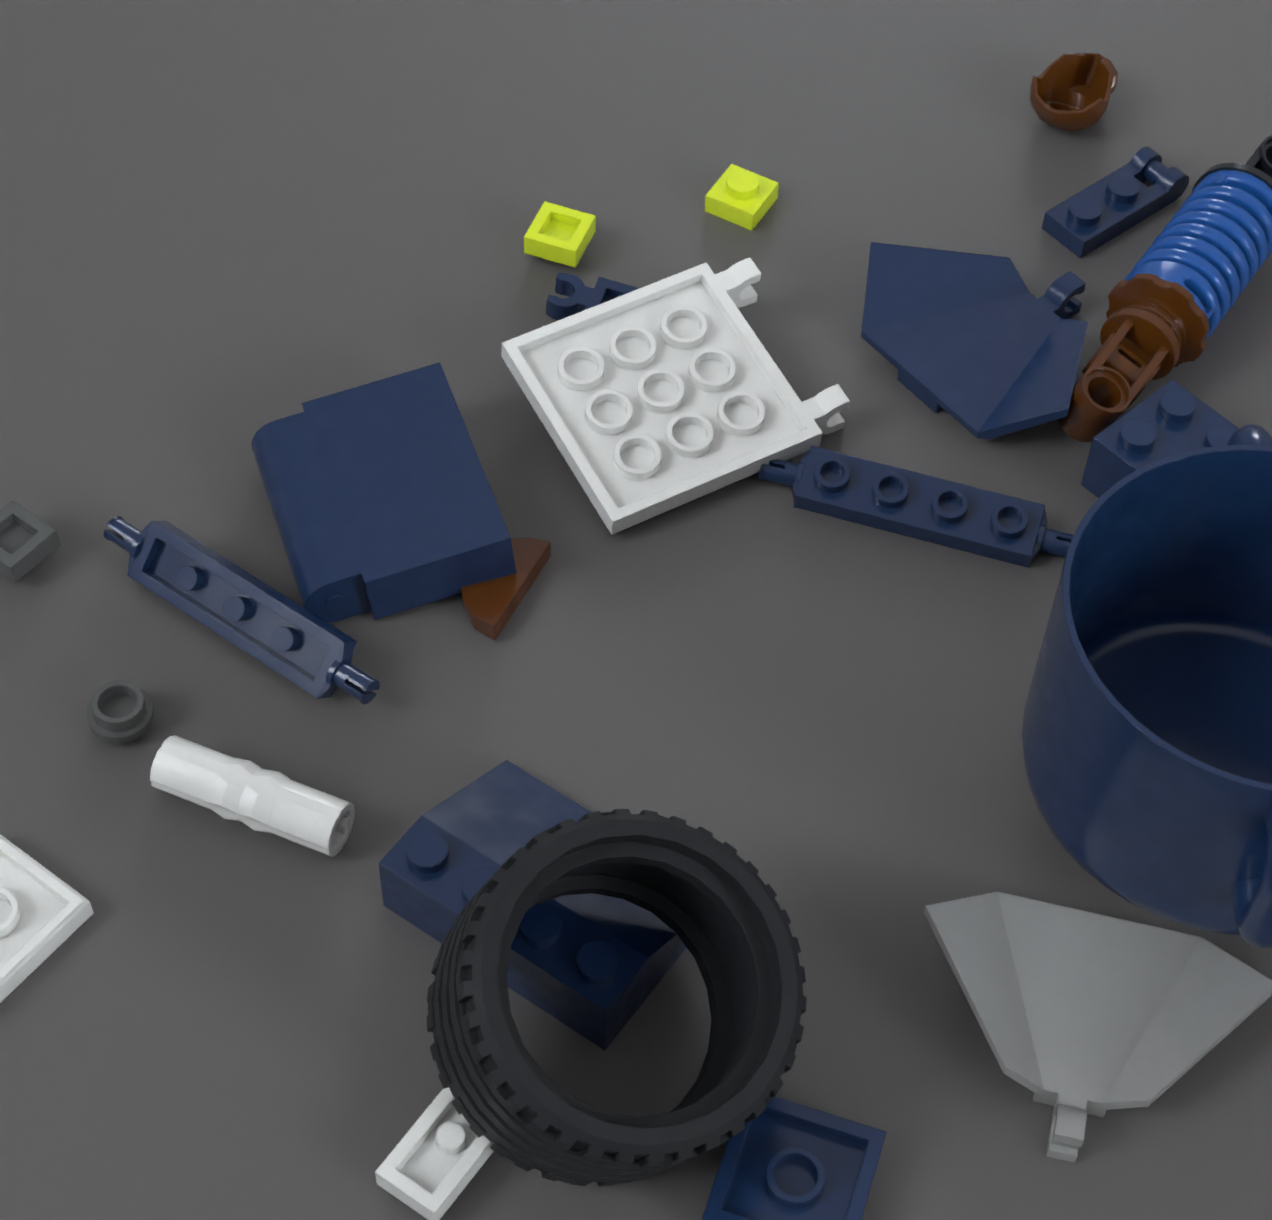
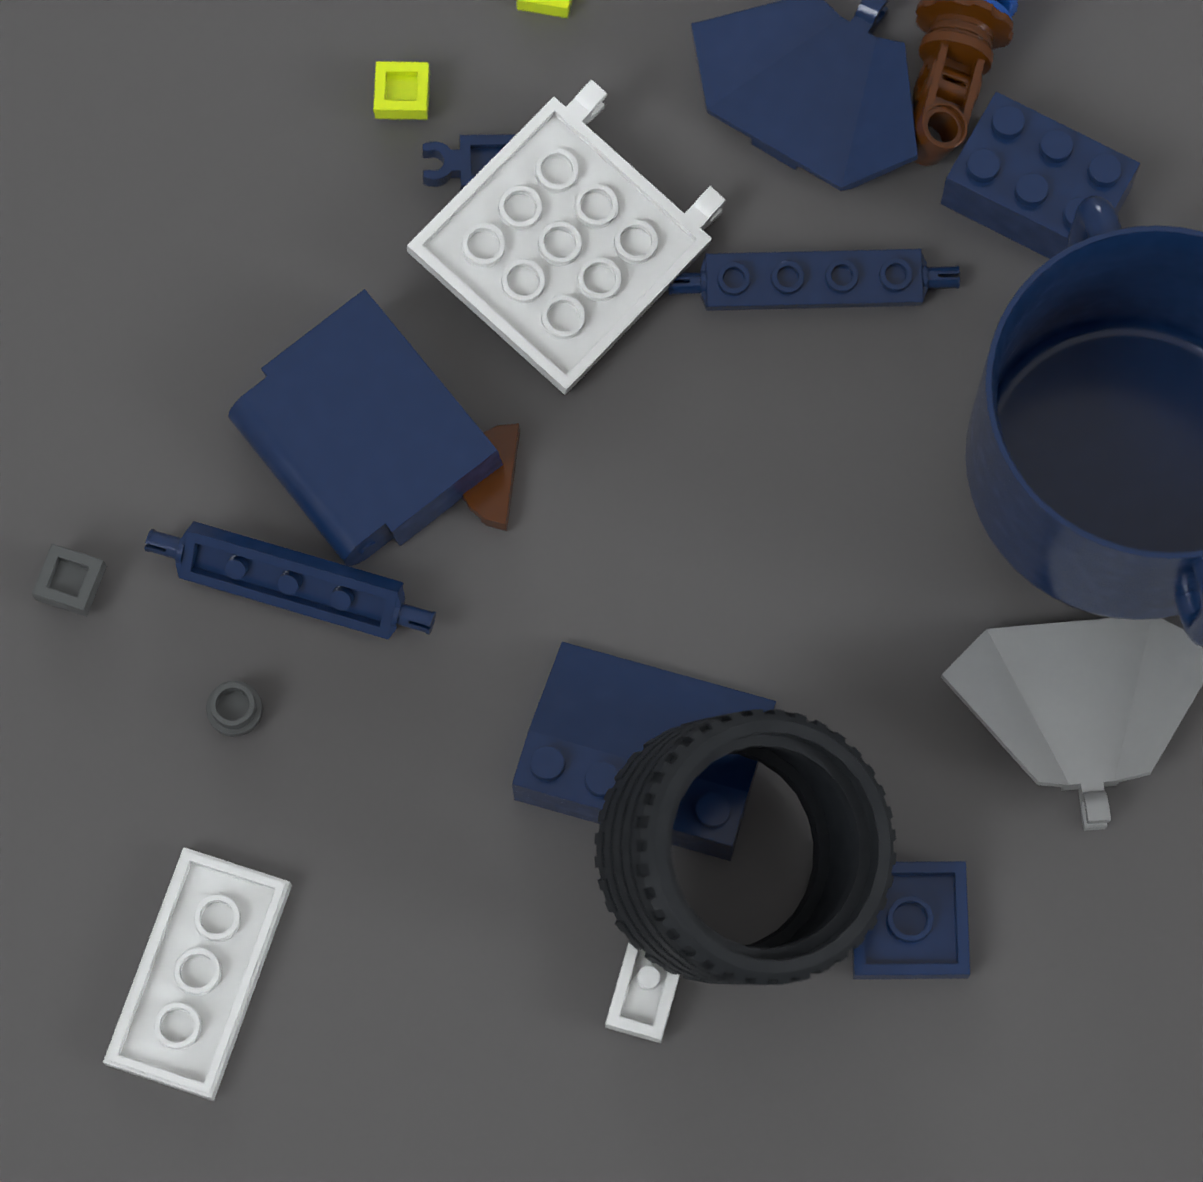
camera: 15 degrees left, 20 degrees up
(252, 795) = (376, 747): white axle -> none

